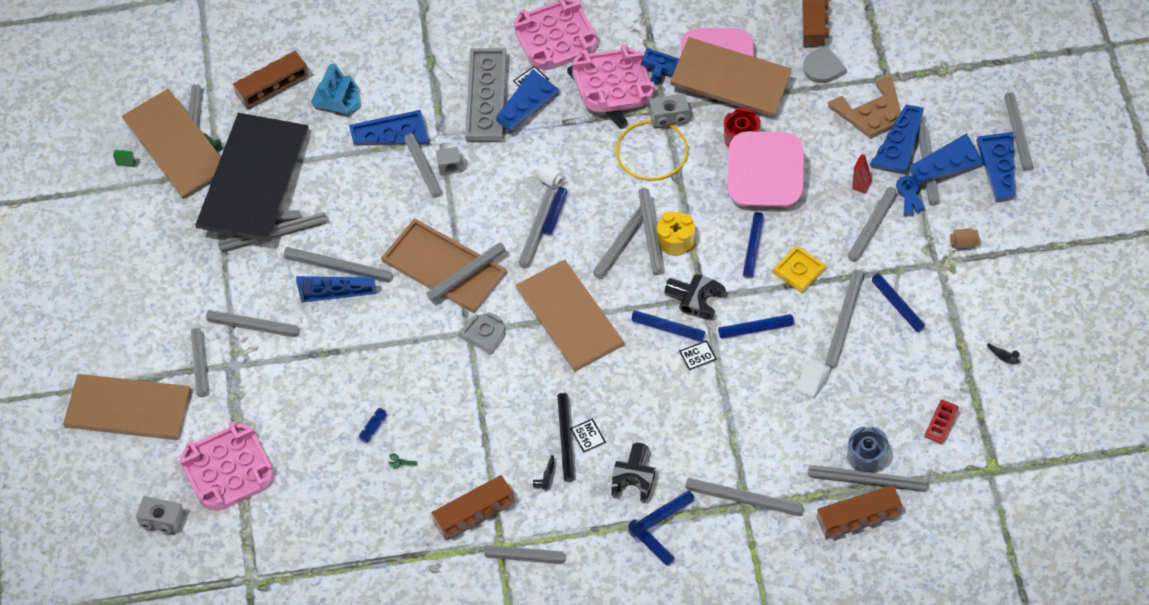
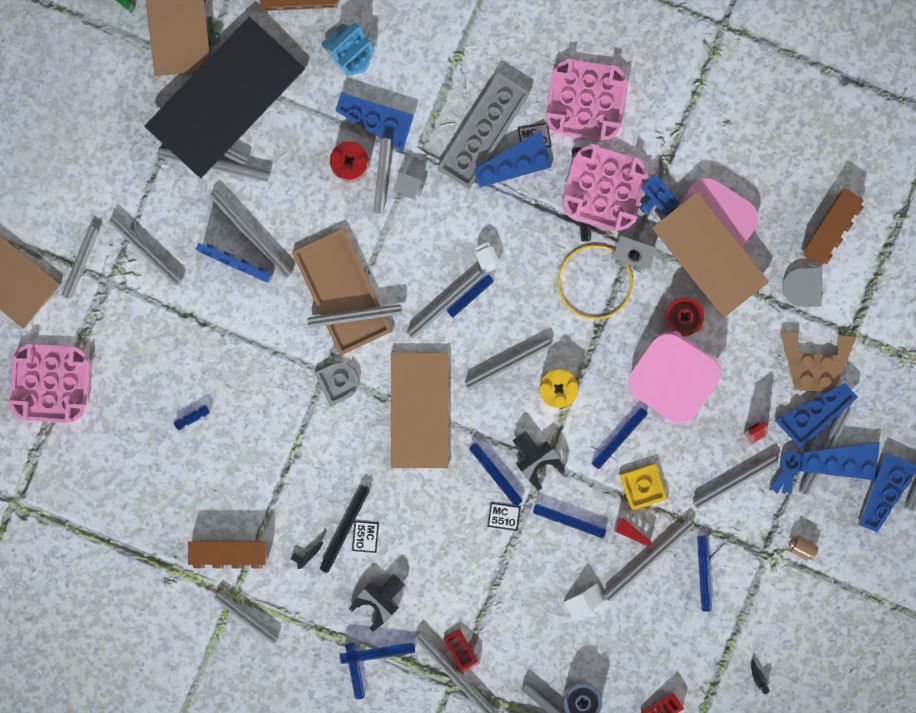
camera: 30 degrees right, 30 degrees up
(388, 168) = (352, 151): none -> red brick
(395, 465) = (195, 467): clear green hand -> none
(650, 230) = (538, 371): light grey axle -> none
(746, 480) = (469, 665): none -> red slope
(814, 303) = (626, 529): none -> red slope

